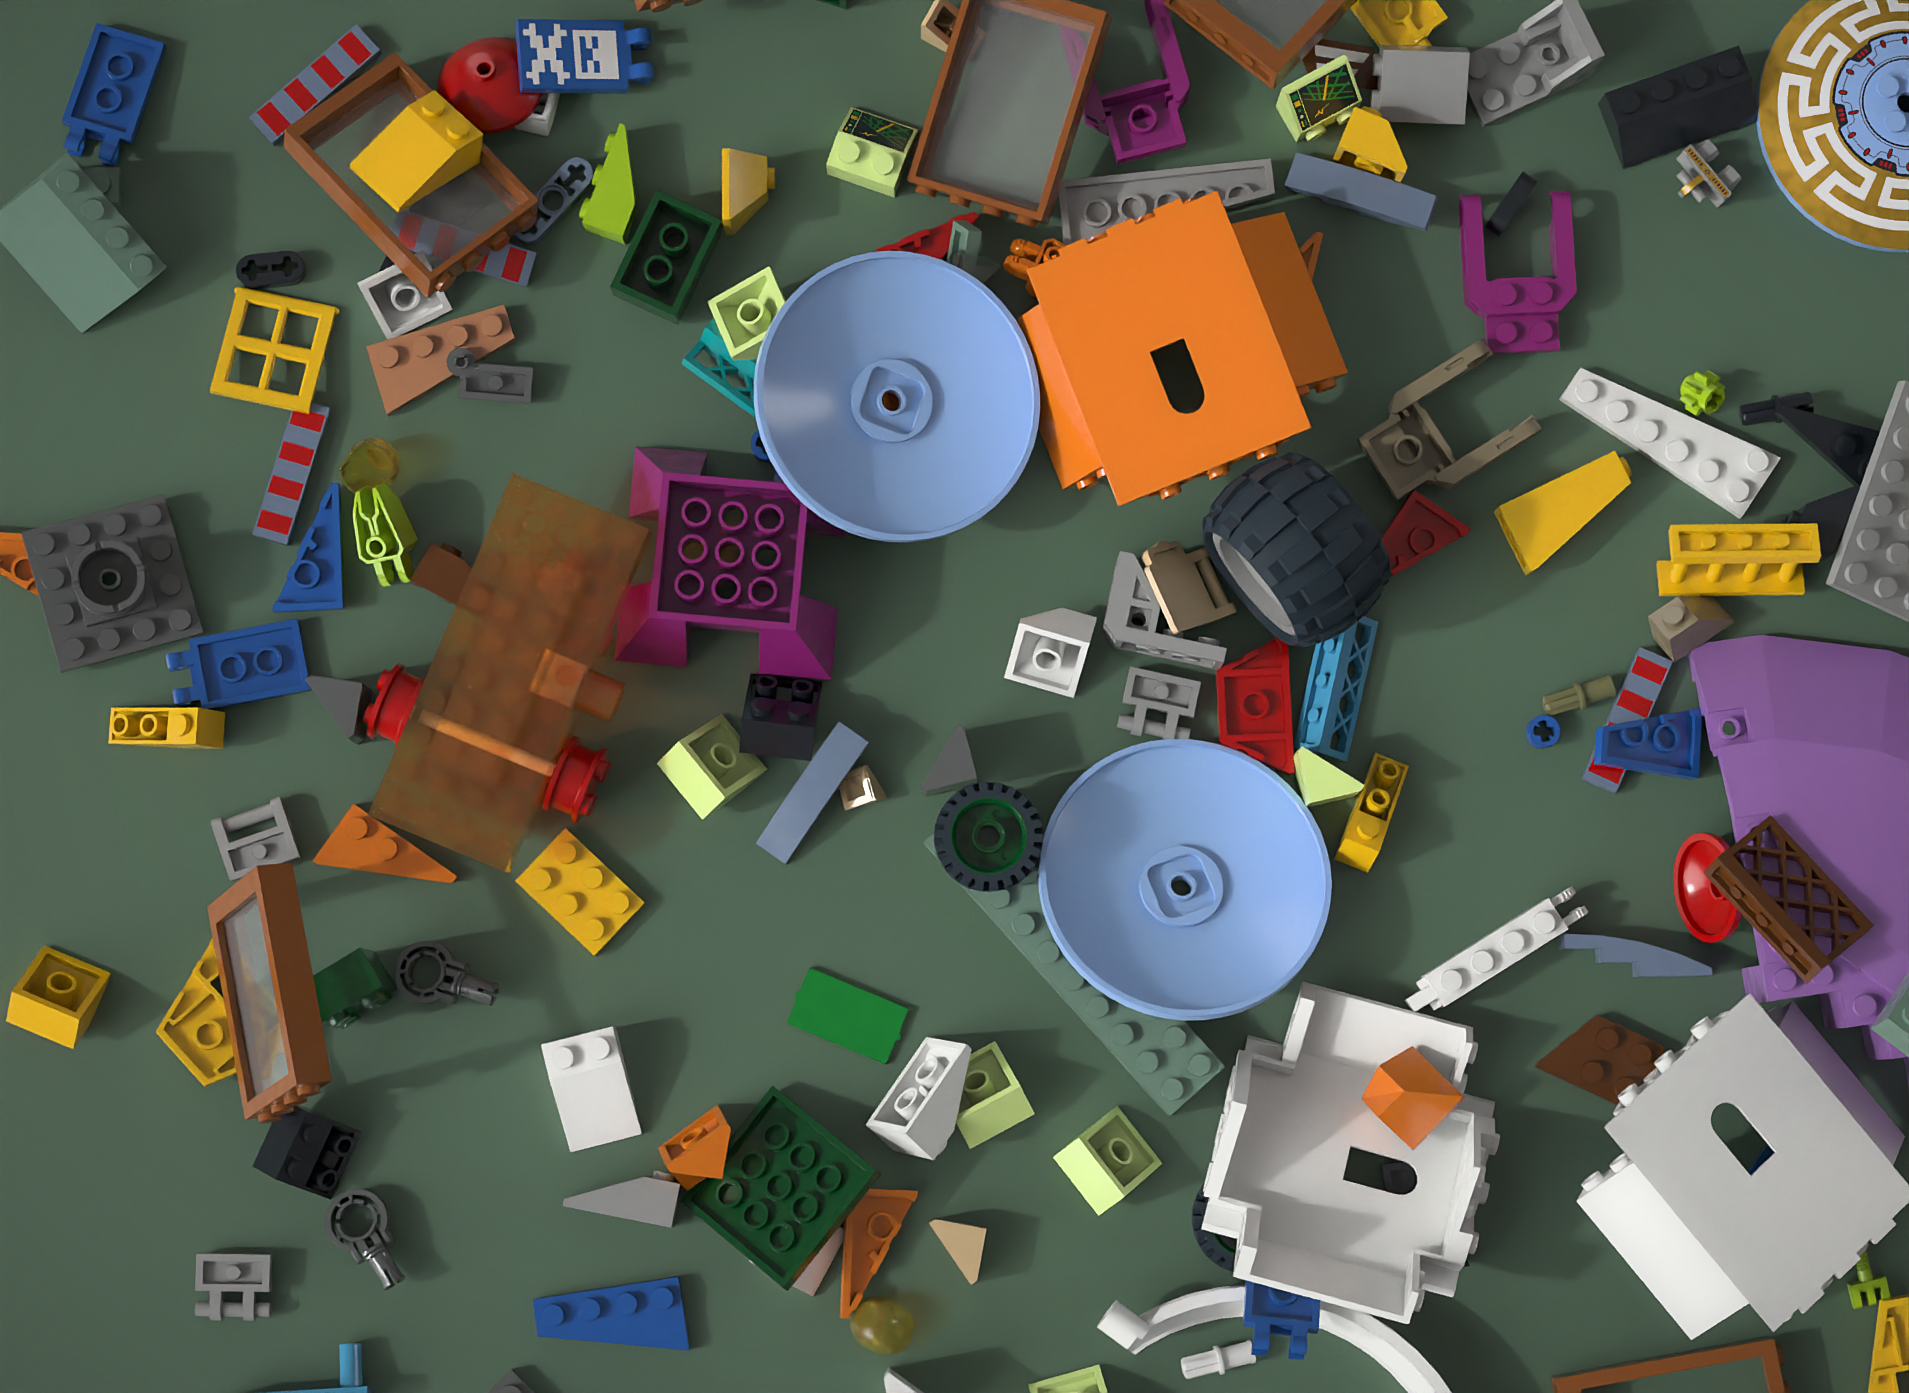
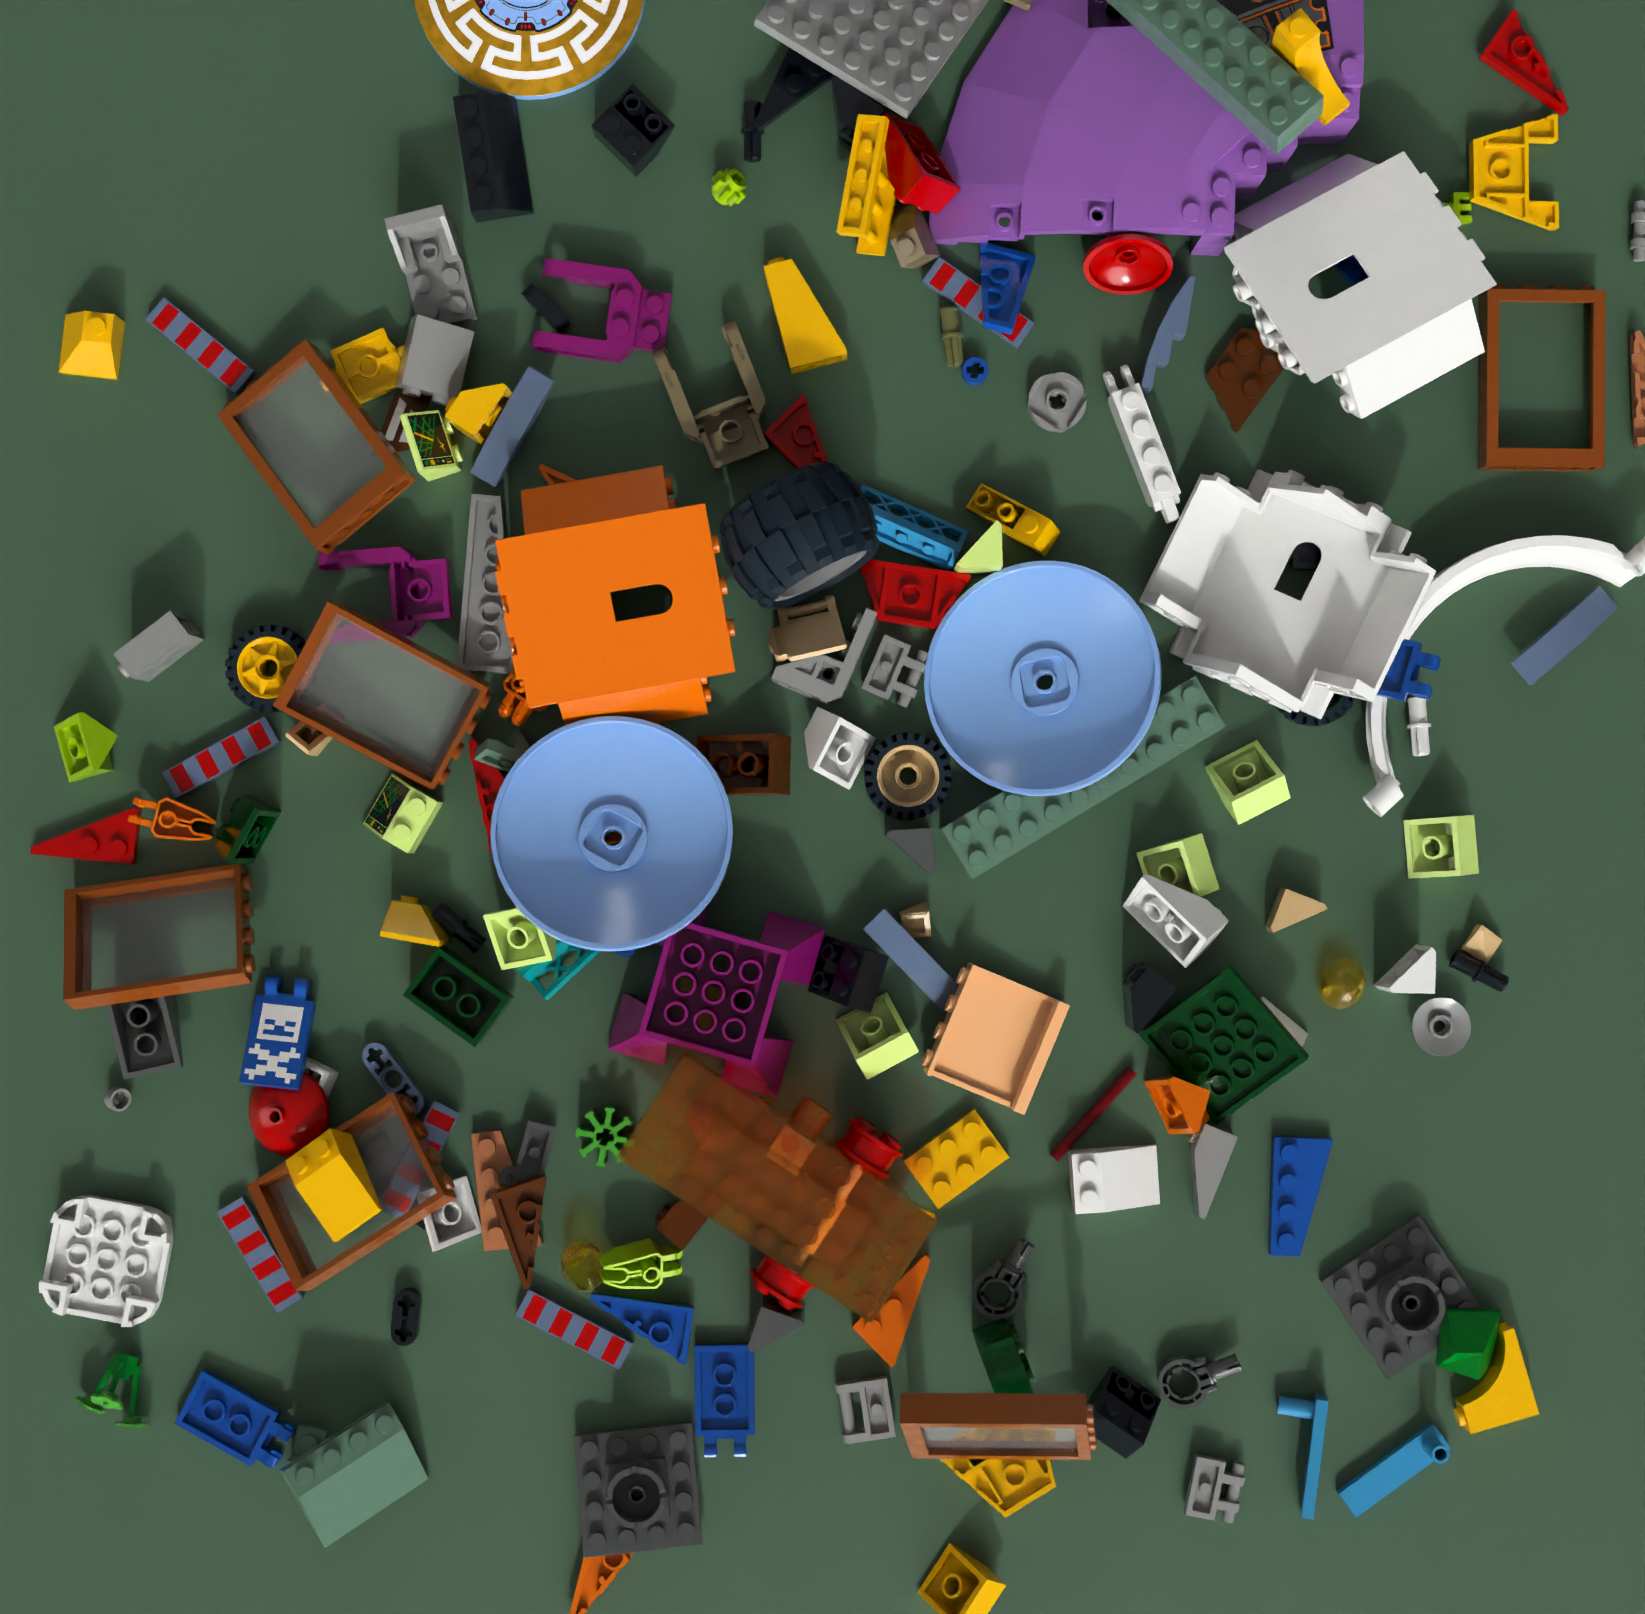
camera: 75 degrees left, 5 degrees up
(167, 727) = (763, 1465): yellow slope -> none
(273, 349) = (472, 1326): yellow window -> none
(416, 379) = (519, 1215): none -> reddish brown wing
(541, 454) = (600, 1126): none -> bright green gear
(613, 202) = (402, 1029): lime slope -> none
(665, 1049) = (1093, 1113): none -> dark red bar
(737, 908) = (995, 1037): none -> light nougat panel
(748, 242) = (458, 927): none -> black axle
(824, 1078) = (1144, 995): none -> black slope
(847, 1016) = (1094, 965): green piece -> none
(867, 1240) = (1274, 982): orange wing -> none
(995, 807) = (956, 827): wheel -> none
(1012, 549) = (750, 762): none -> reddish brown slope
(1039, 714) = (931, 772): none -> wheel
(1410, 1096) = (1247, 533): orange slope -> none
(1507, 848) = (1052, 385): none -> light grey plate
(1694, 452) = (773, 205): white wing -> none
(1701, 179) = (555, 151): light grey hips -> none
(1746, 266) = (633, 130): none -> black slope
(1770, 913) = (1169, 215): reddish brown fence -> none
(1774, 609) = (917, 167): none -> red slope

